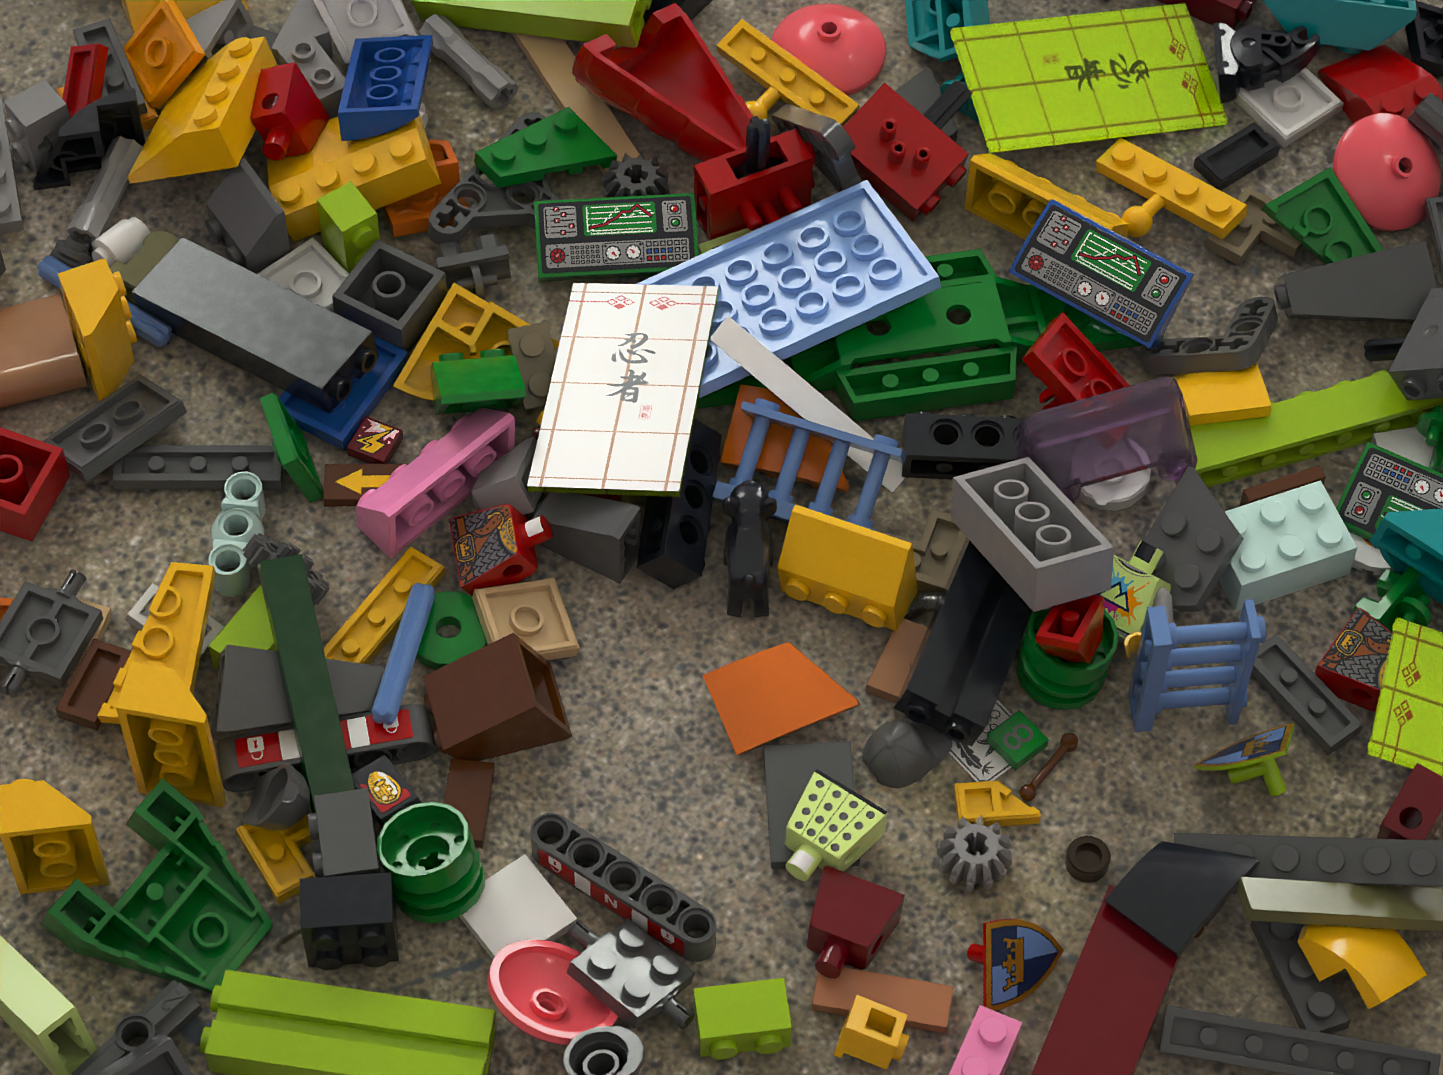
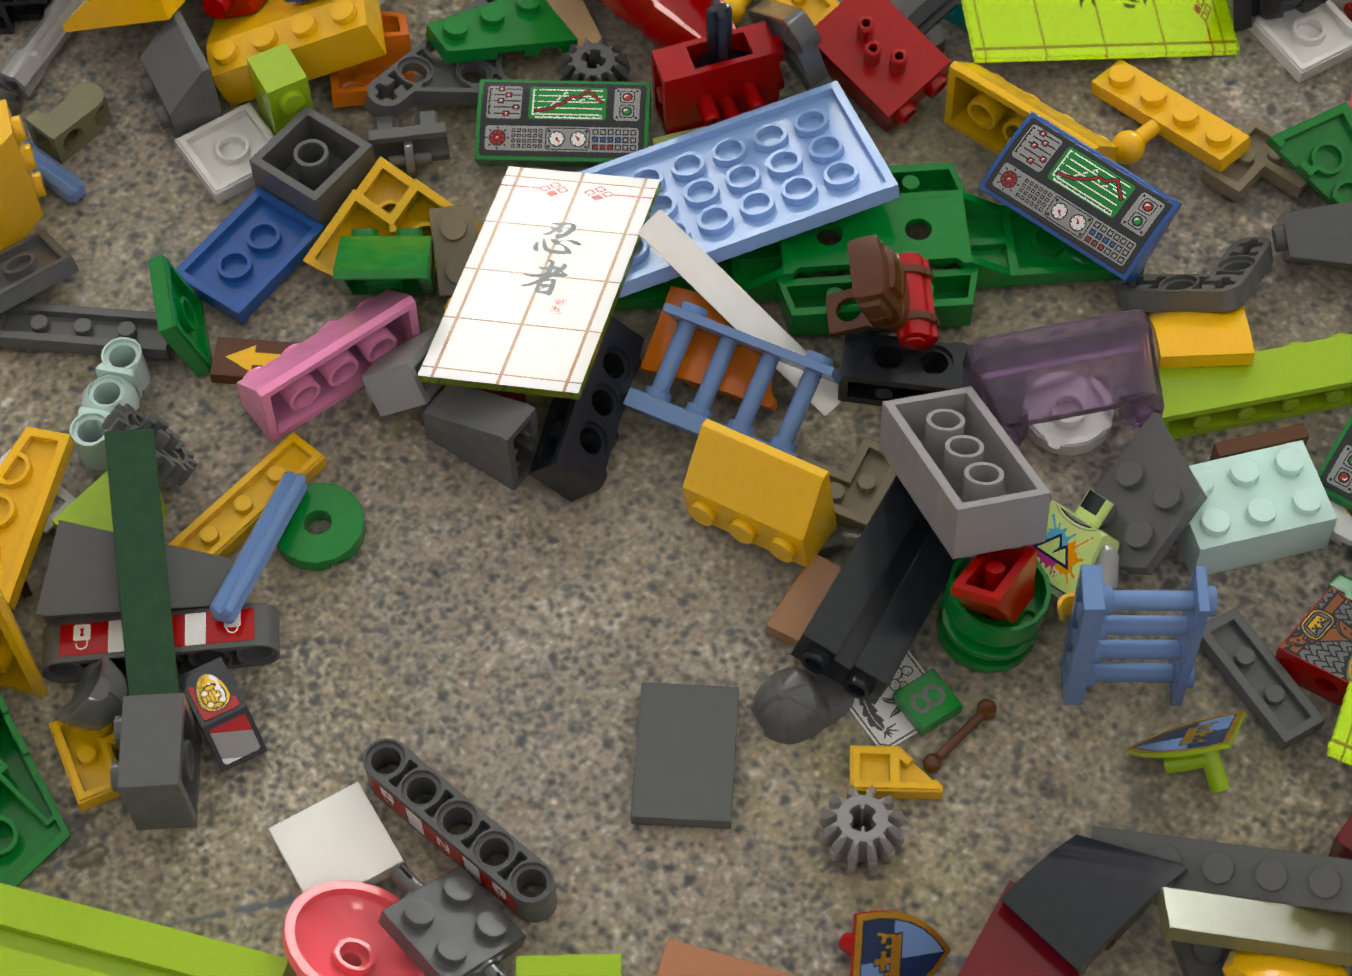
camera: 10 degrees right, 0 degrees up
(120, 241) = (45, 91): white brick -> none
(257, 325) = (170, 186): brick -> none
(349, 920) = (145, 839): black brick -> none
(374, 442) = (275, 318): dark red tile -> none
(431, 862) = (246, 782): green wheel -> none
(470, 793) = (305, 718): reddish brown tile -> none
(495, 702) = (353, 609): reddish brown slope -> none
(496, 546) = (379, 442): torso -> none
(531, 612) = (401, 524): tan tile -> none
(748, 547) = (654, 462): black animal -> none
(774, 696) = (659, 629): orange slope -> none
(831, 827) = (700, 784): yellowish green torso -> none
(850, 921) = (708, 894): dark red torso -> none
(944, 375) = (890, 292): none -> reddish brown piece
(1069, 365) = (1032, 289): red plate -> none
(1087, 859) = (991, 846): dark brown tile -> none
(1236, 156) = (1245, 88): black tile -> none

